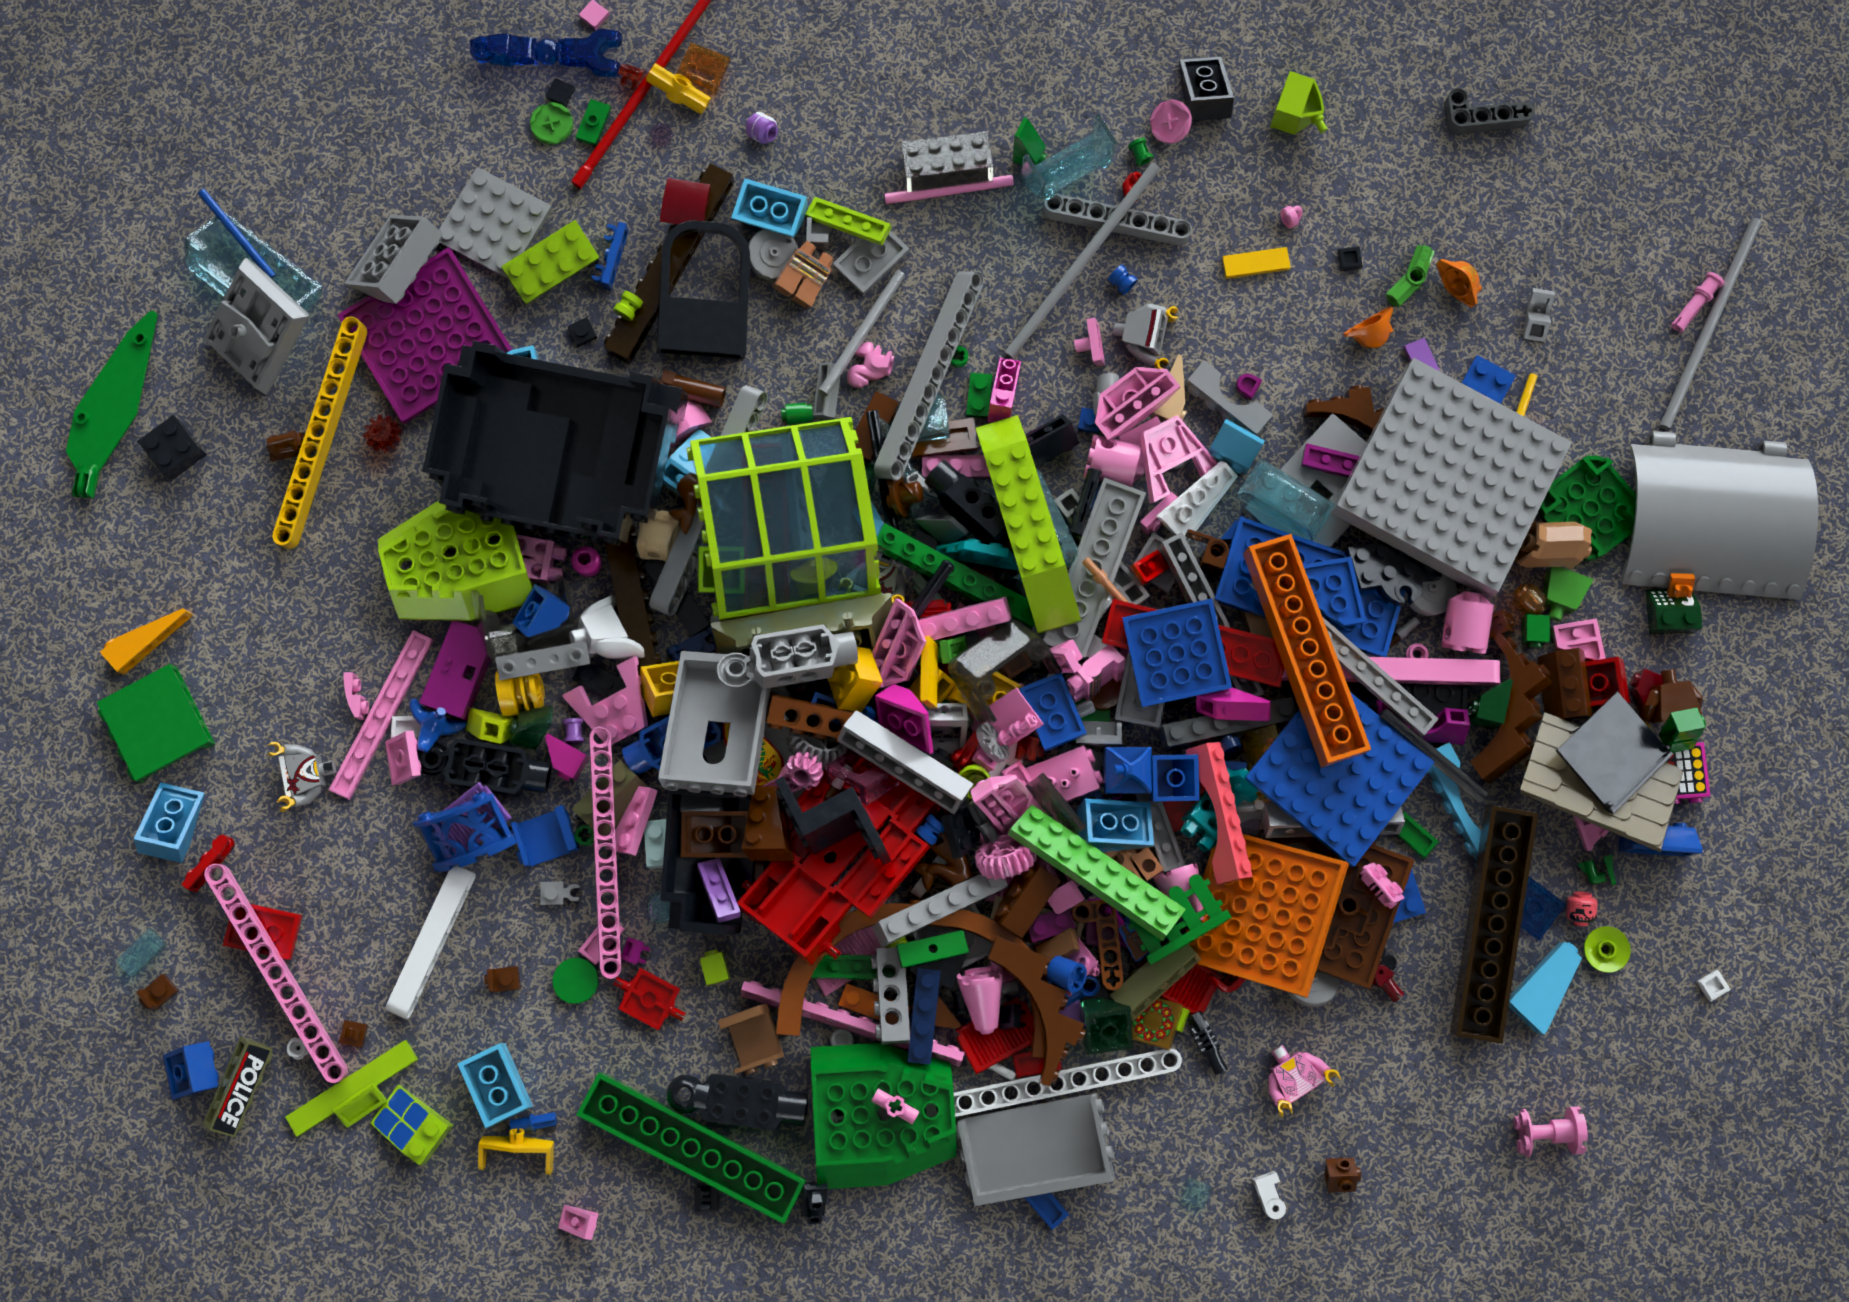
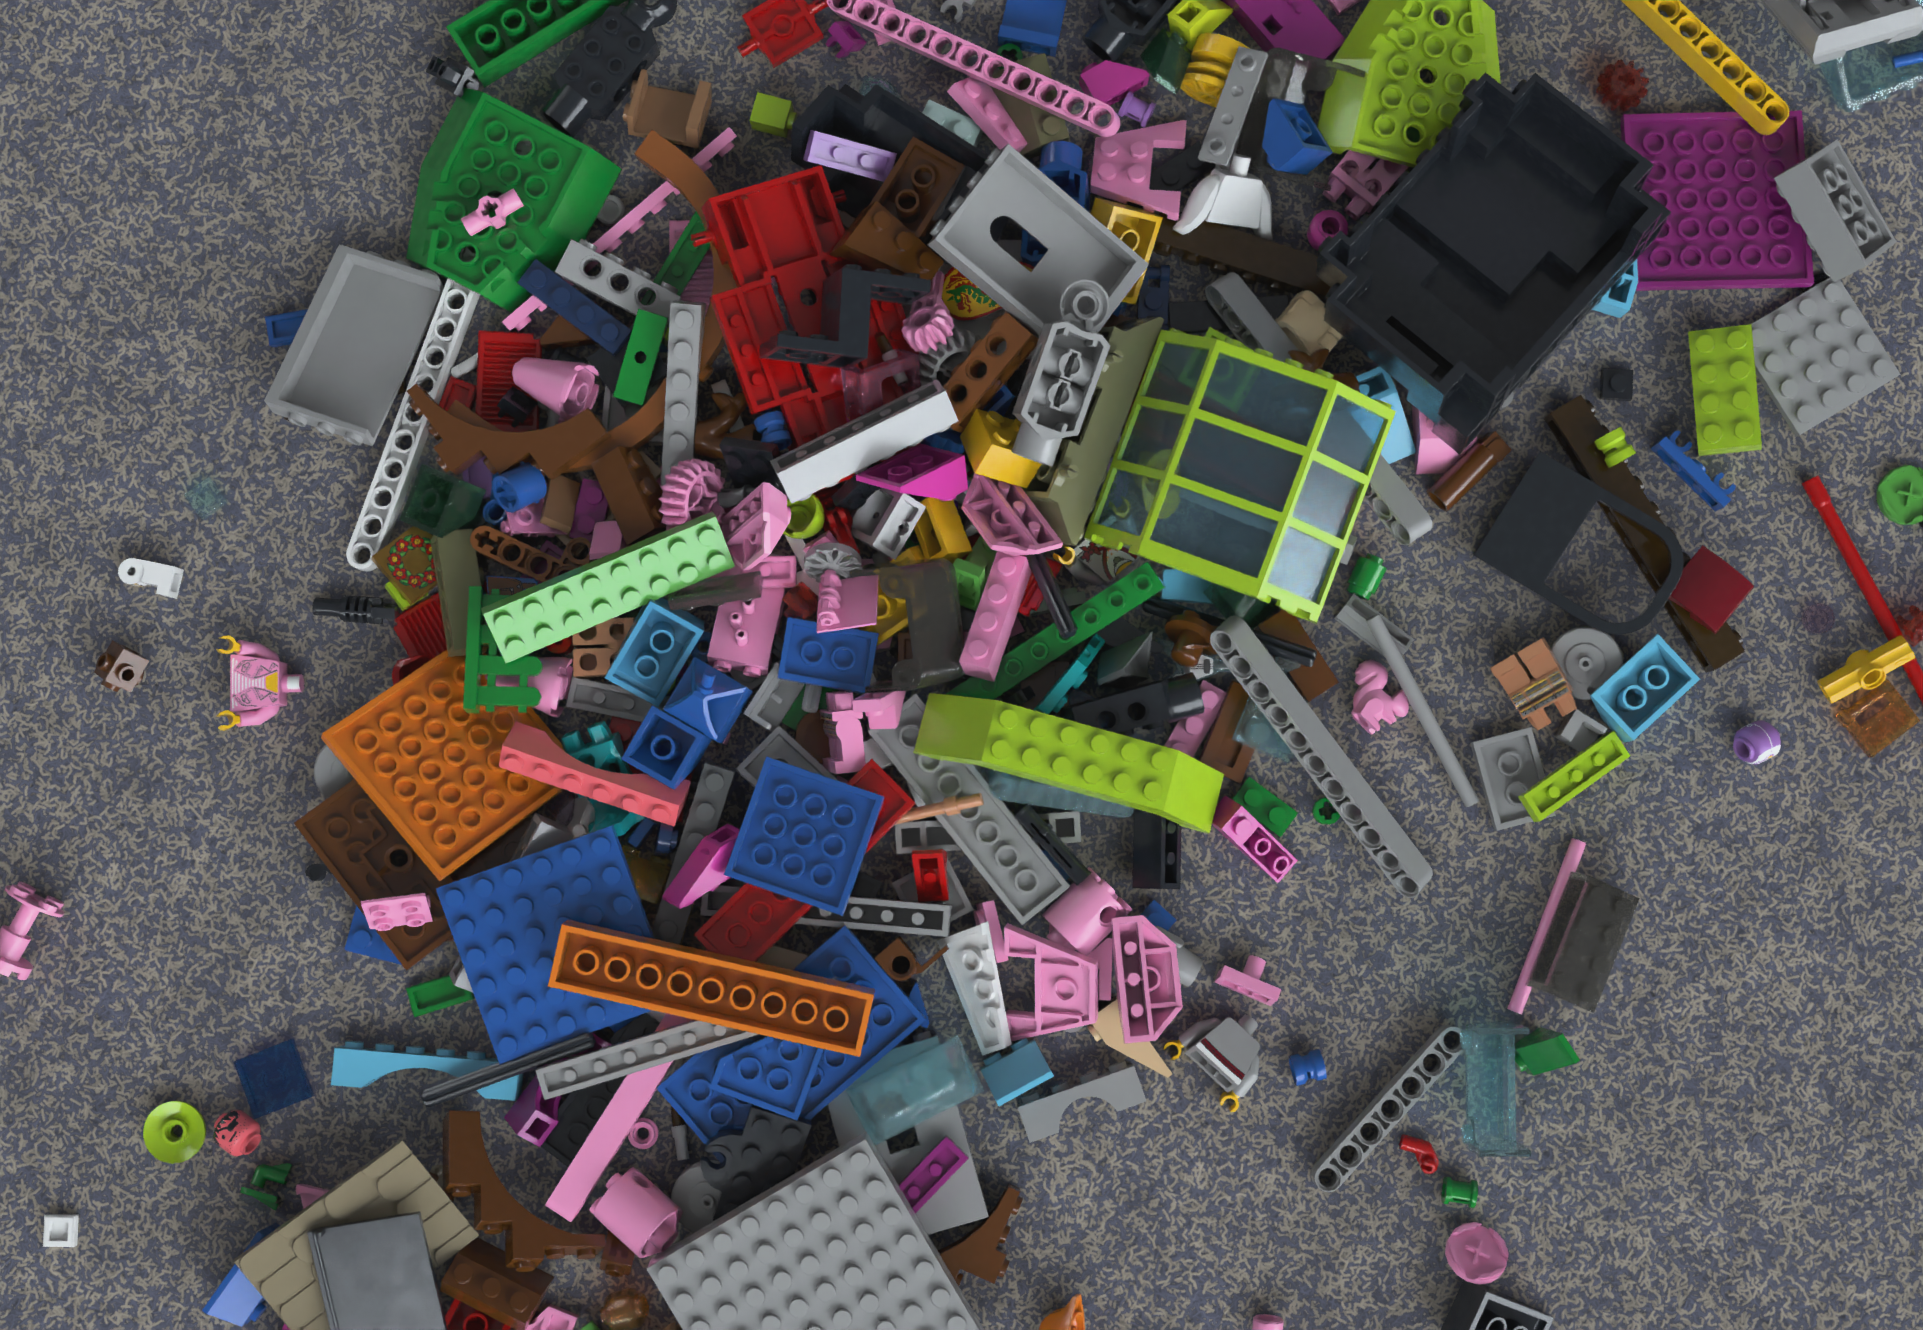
camera: 120 degrees right, 5 degrees up
(593, 122) = (1880, 545): green plate -> none
(863, 1002) = (640, 253): orange plate -> none
(929, 673) = (954, 534): yellow tile -> none
(1082, 260) = (1360, 1033): light grey piece -> none
(1247, 385) = (1087, 1139): magenta tile -> none
(1256, 262) = (1234, 1247): yellow tile -> none
(1384, 979) = (298, 853): dark red piece -> none
(1491, 707) = (527, 1177): dark green slope -> none
(1494, 923) = (280, 1016): dark brown brick -> none
(1535, 630) = (583, 1292): green brick -> none
(1545, 987) = (178, 1032): medium azure slope -> none

